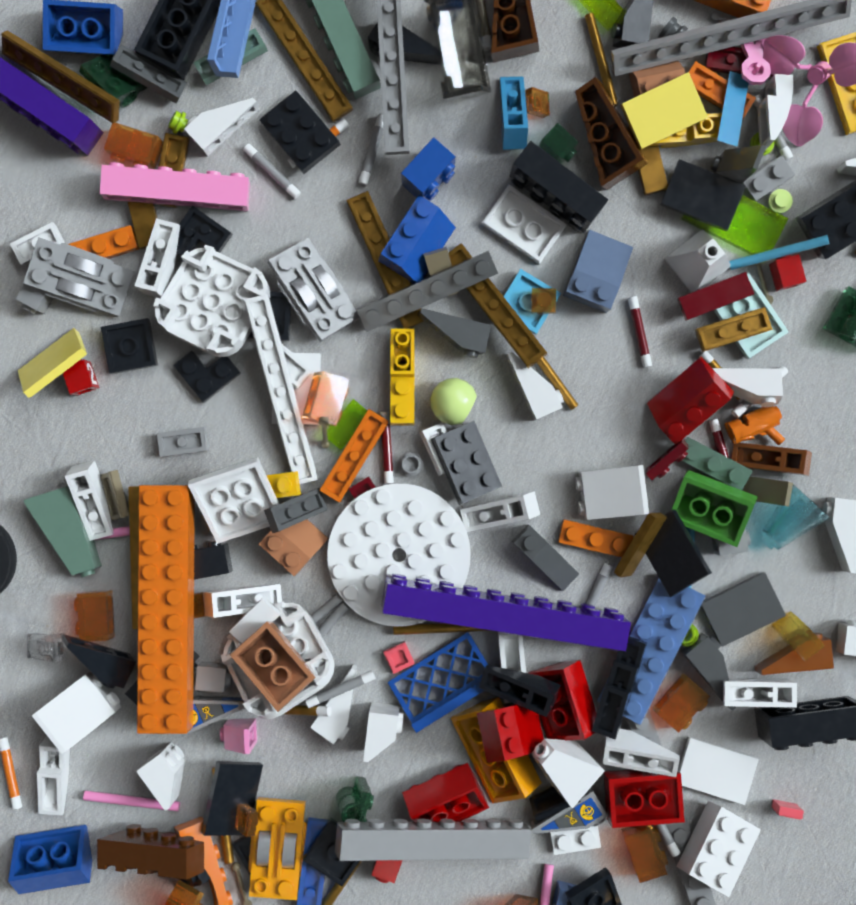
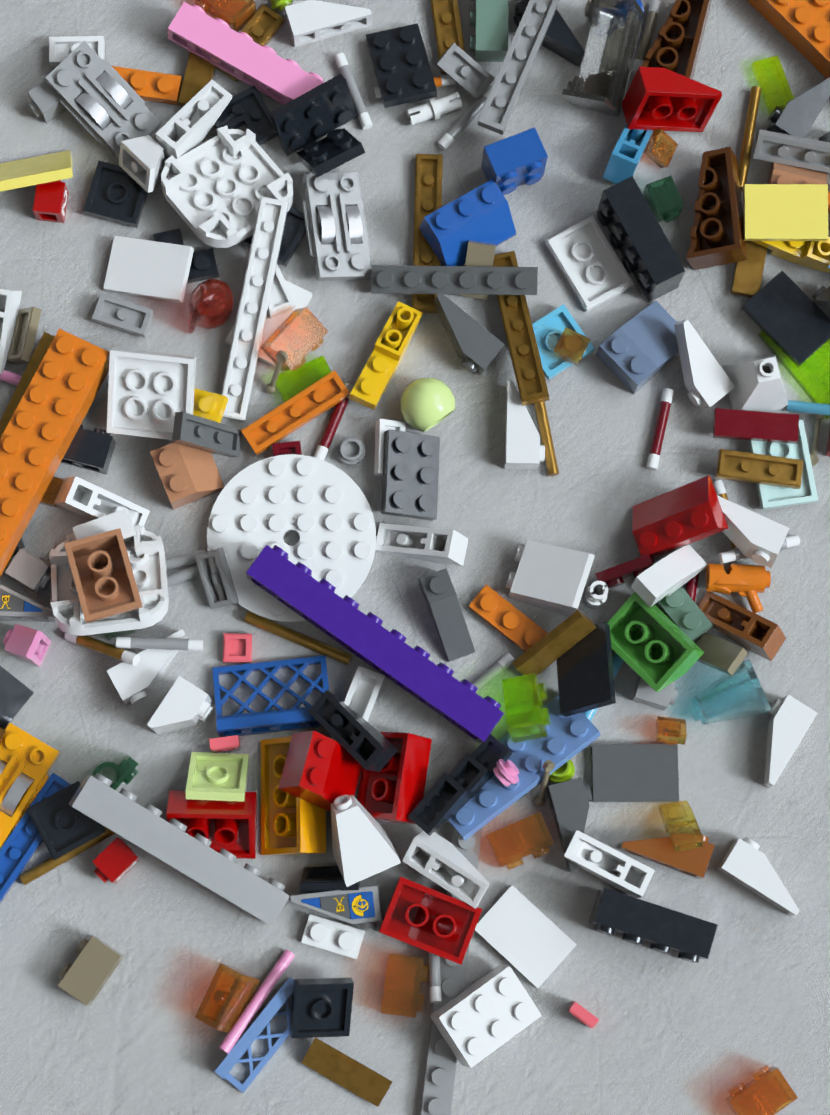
camera: 15 degrees right, 10 degrees down
(135, 312) = (142, 160): none -> white slope
(184, 396) = (148, 268): none -> white tile
(246, 402) = (210, 305): none -> clear red piece
(251, 208) = (313, 114): none -> black plate
(279, 232) = (330, 152): none -> black plate
(343, 155) = (434, 108): none -> white pin
(353, 112) = (465, 70): none -> light grey plate
(360, 613) = (220, 575): none -> light grey tile
(425, 736) = (225, 743): none -> coral tile
(433, 766) = (217, 776): none -> yellowish green plate
(527, 61) = (668, 101): none -> red slope
(640, 603) = (525, 707): none -> clear neon green brick
(651, 663) = (506, 772): none -> bright pink plate
(652, 272) = (700, 369): none -> white slope
(654, 488) = (596, 594): none -> white pin
(681, 663) = (547, 766): none -> dark tan hinge
(704, 450) = (668, 575): none -> white slope
(756, 565) = (671, 730): none -> clear orange plate

